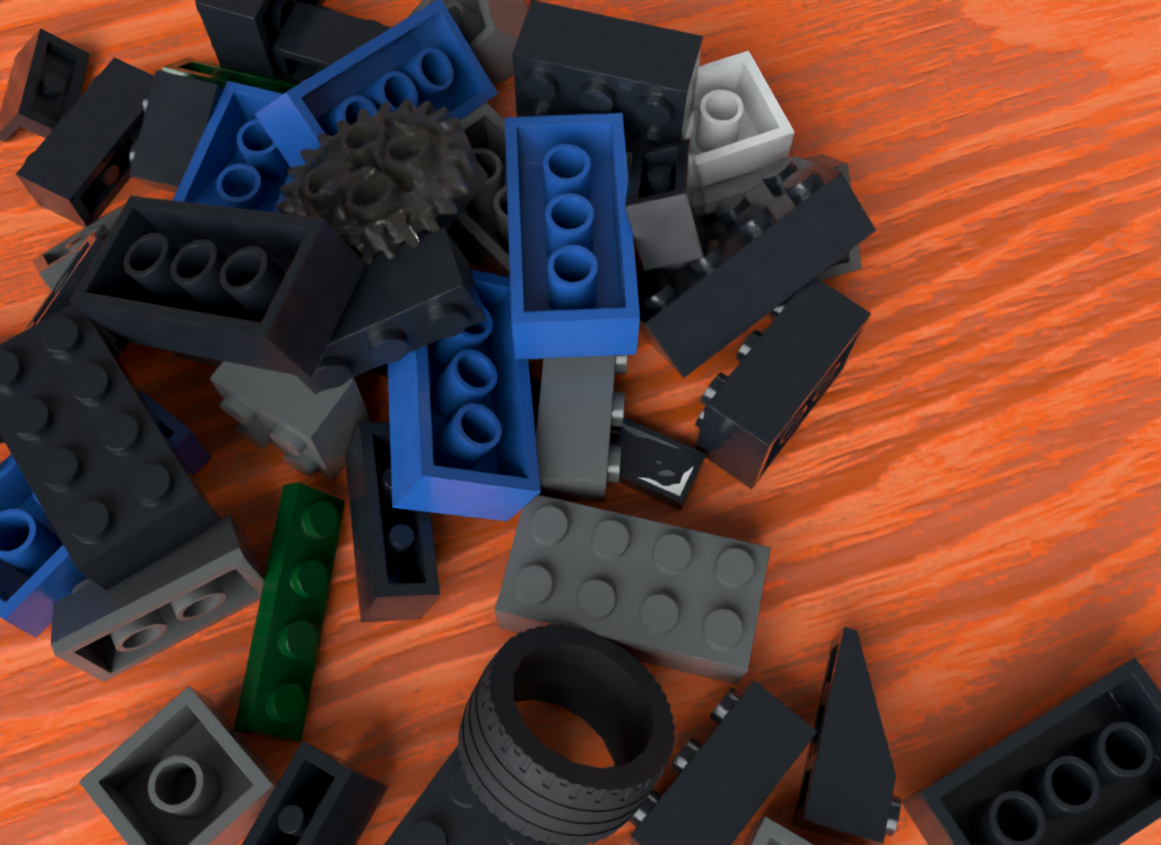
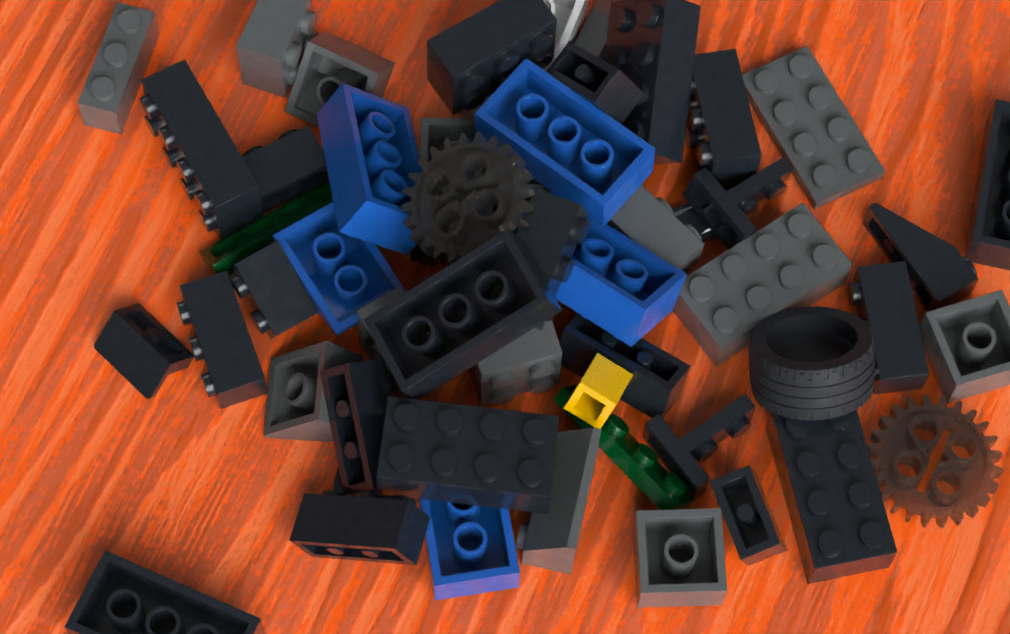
camera: 50 degrees left, 0 degrees up
(312, 518) = (598, 391): none -> yellow brick
(367, 687) = (700, 444): none -> black bracket
(711, 479) = (728, 210): none -> black bracket
(886, 489) = (811, 127): none -> dark grey plate

